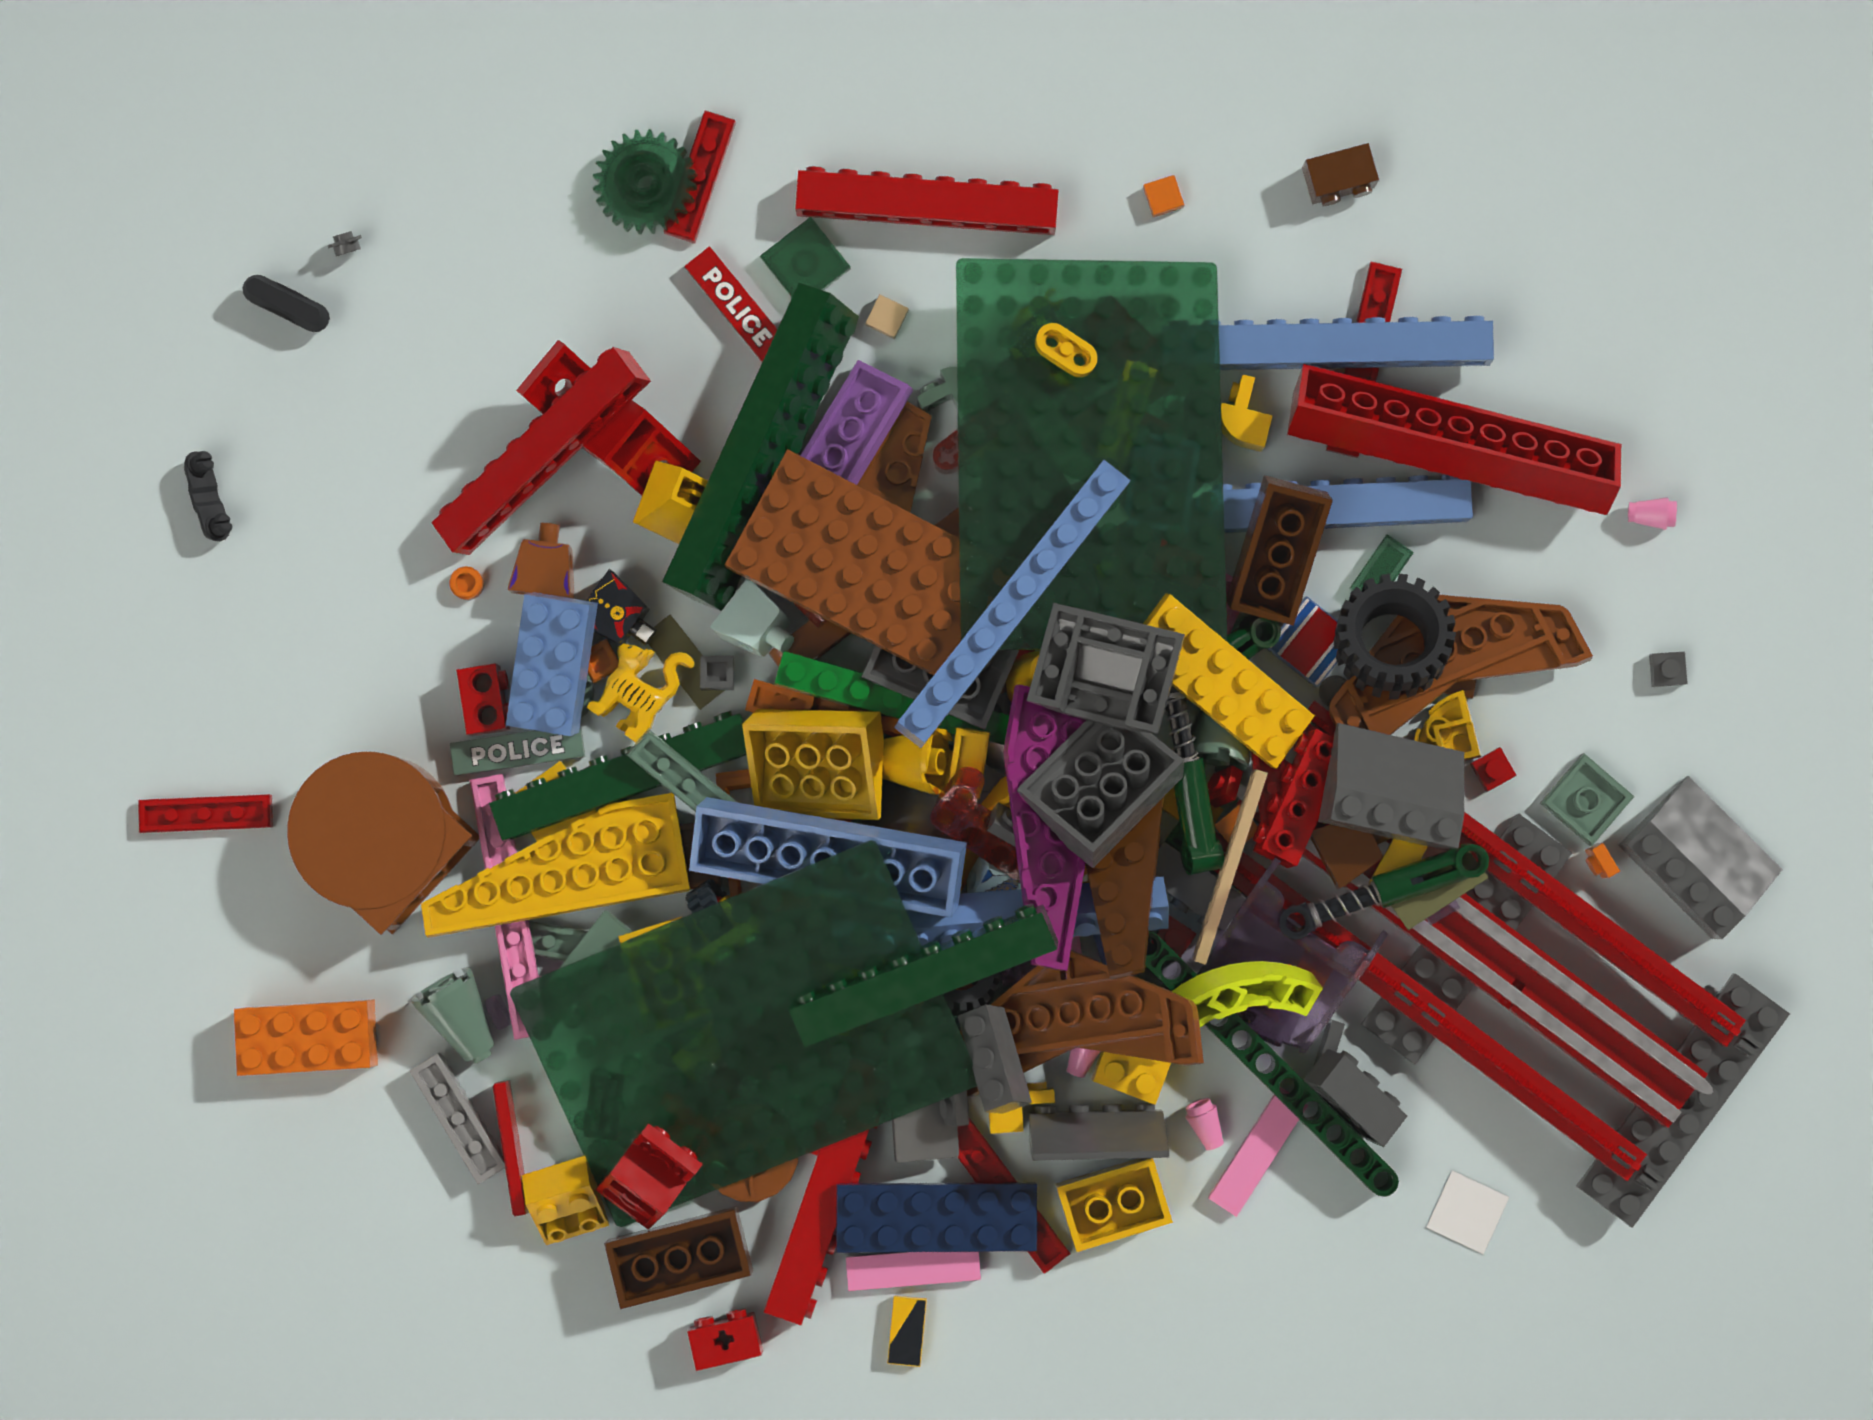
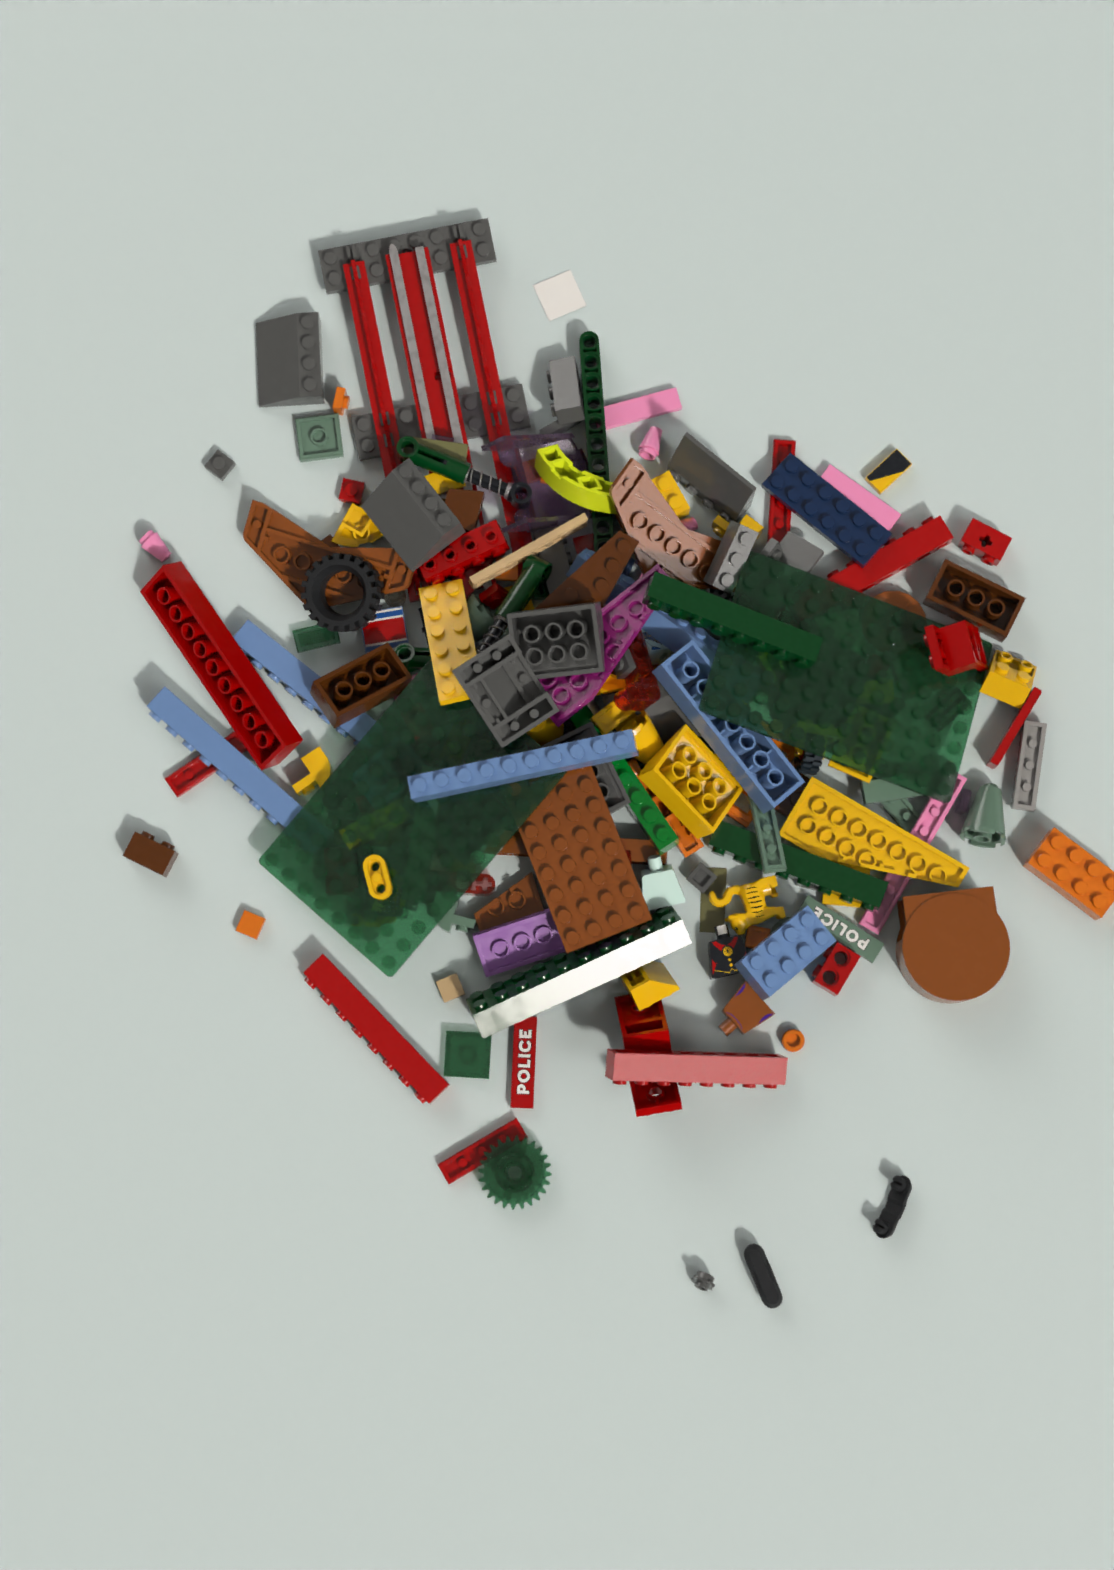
camera: 140 degrees left, 5 degrees down
(205, 813) = (1033, 1038): red tile -> none
(1113, 1203) = (734, 441): yellow brick -> none

